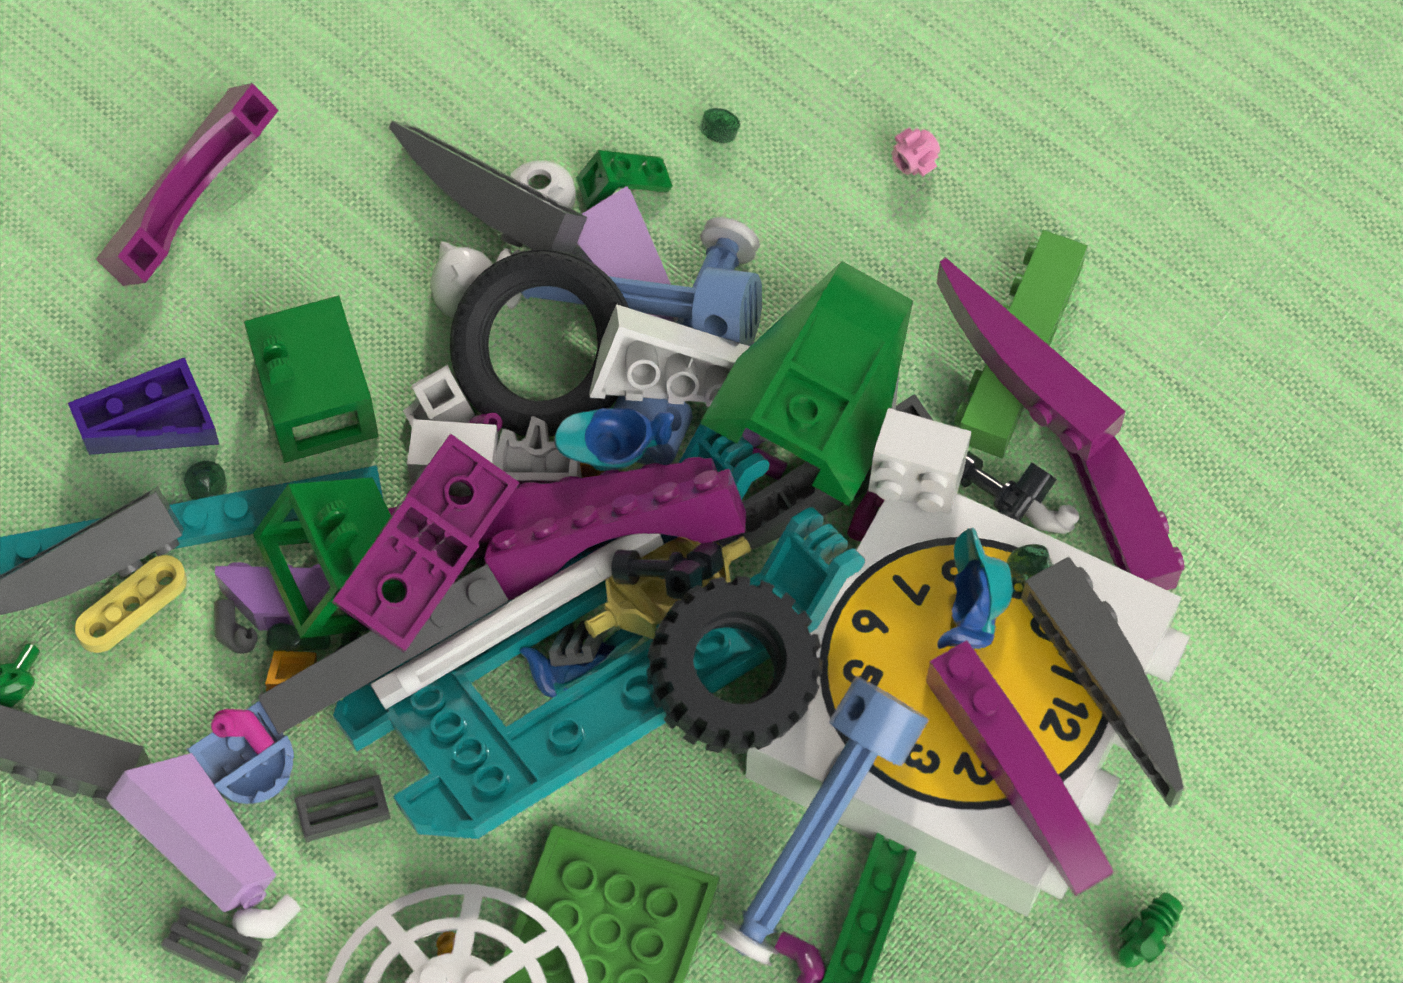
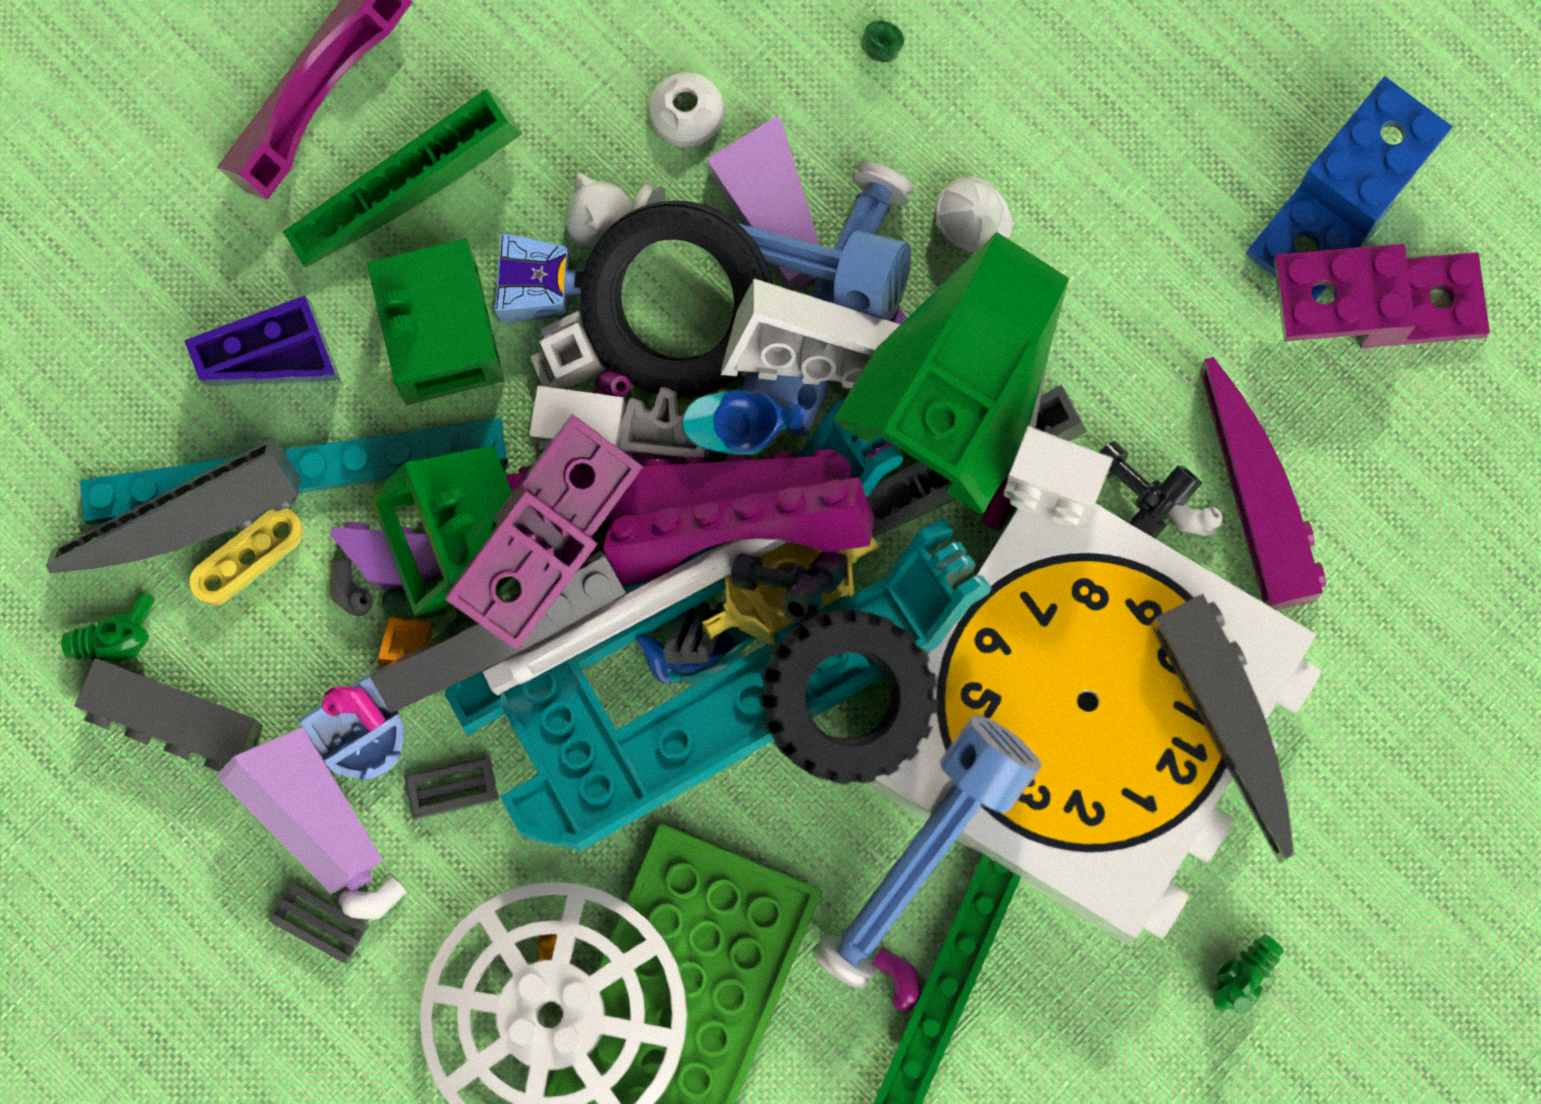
camera: 10 degrees right, 15 degrees up
(205, 480) = (325, 423): clear green tile -> none
(277, 259) = (405, 178): none -> green slope
(403, 342) = (534, 280): none -> torso
(492, 196) = (634, 117): dark grey slope -> none
(617, 170) = (773, 94): green bracket -> none
(809, 259) = (971, 213): none -> white piece
(915, 152) = (1089, 87): bright pink gear -> none
(982, 593) = (1108, 627): hair -> none
(1017, 765) = (1129, 814): magenta slope -> none
(1028, 561) = (1162, 591): clear green tile -> none
(1030, 368) = (1186, 361): magenta slope -> none
(1039, 305) = (1182, 318): bright green brick -> none
(1164, 224) = (1354, 177): none -> blue bracket
(1205, 311) = (1381, 296): none -> magenta bracket

